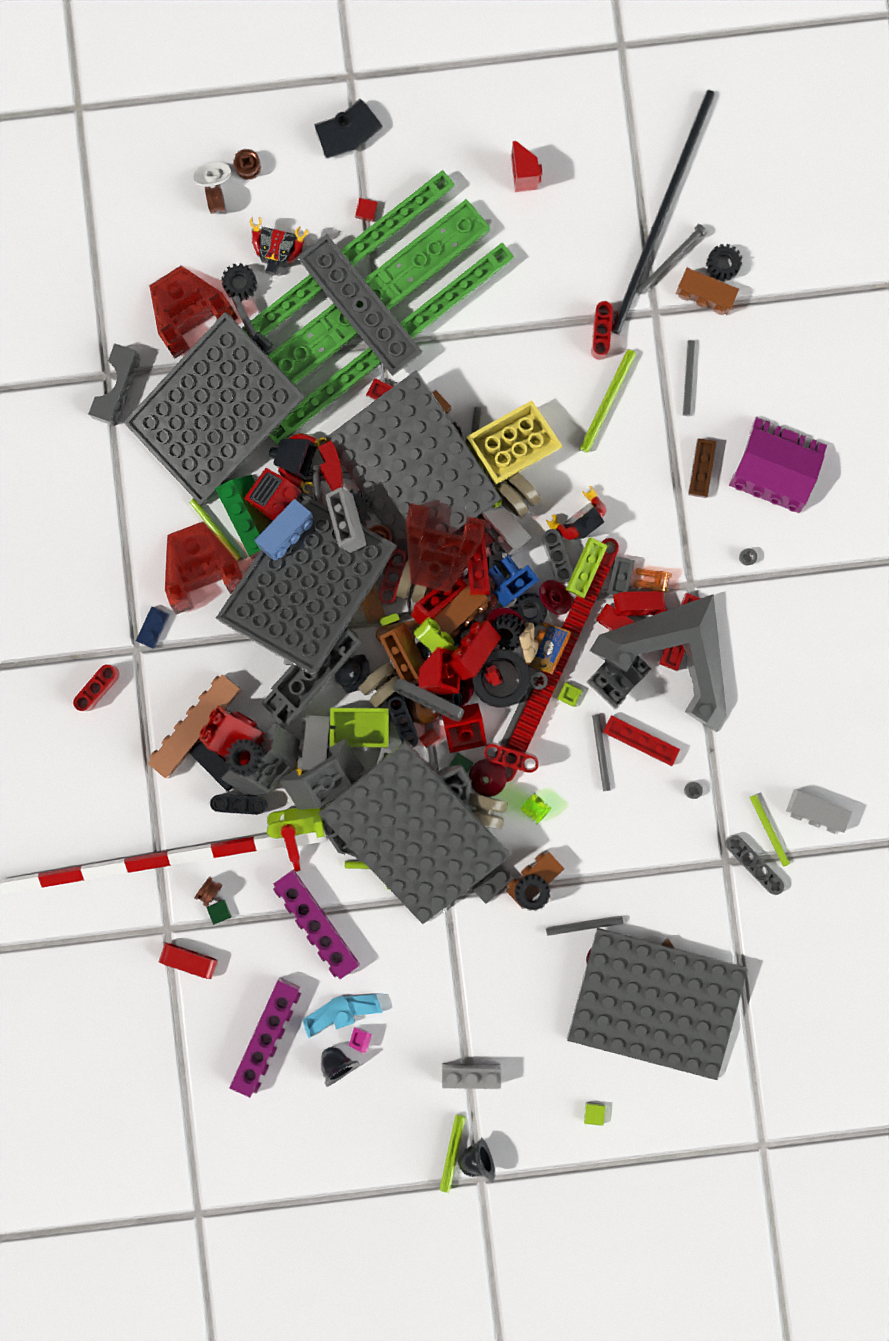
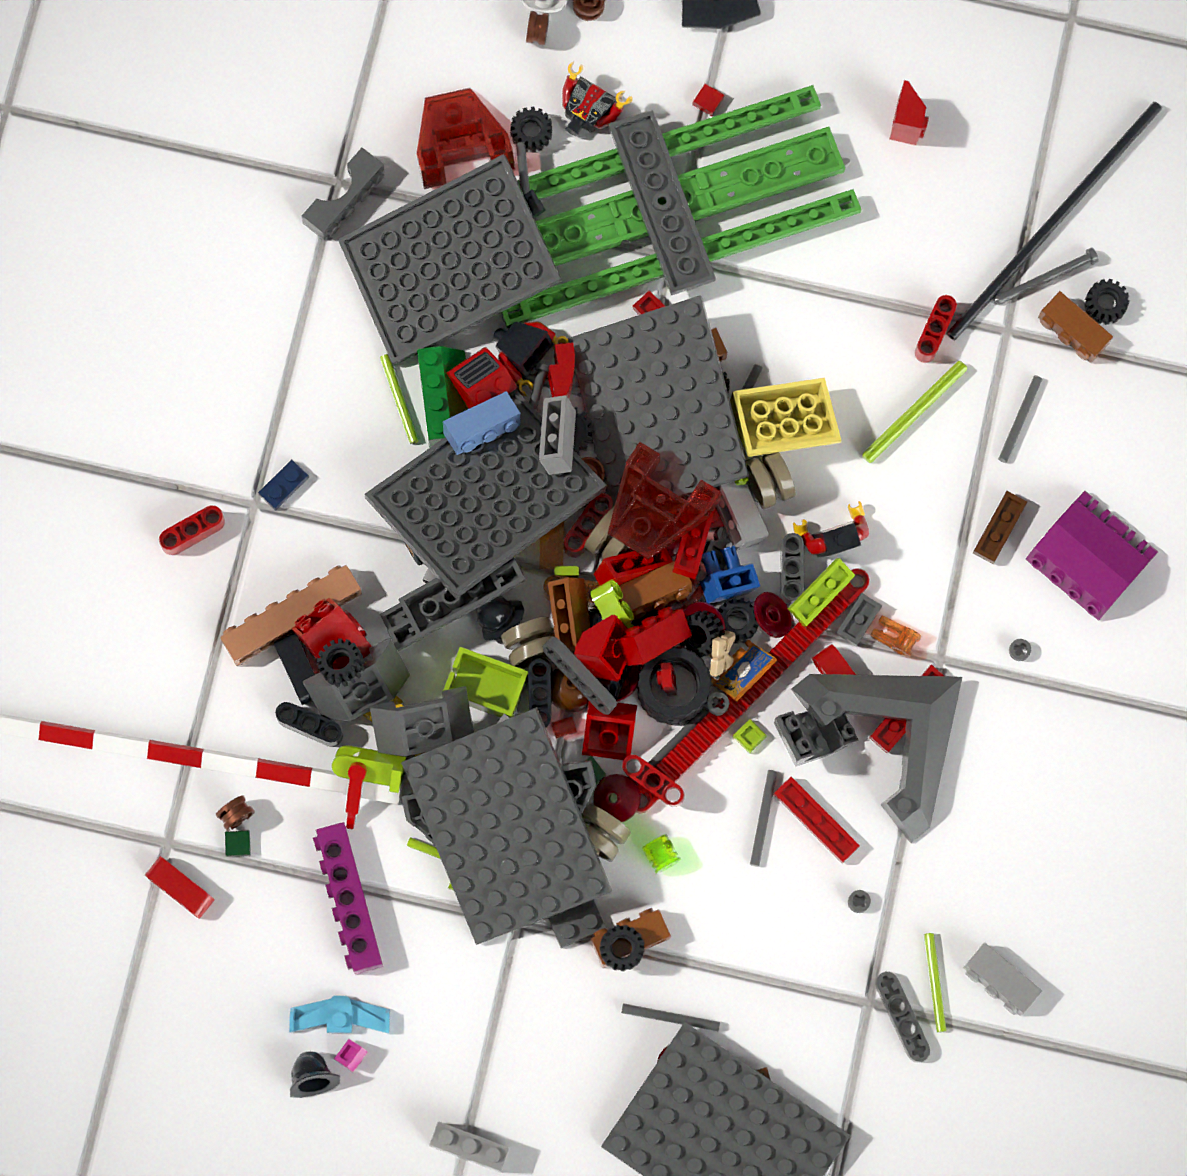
camera: 15 degrees right, 10 degrees down
(194, 561) = (362, 426): clear red wedge -> none
(241, 1082) = (188, 1051): magenta brick -> none
(314, 743) = (428, 679): light grey brick -> none
(639, 603) = (869, 655): red beam -> none

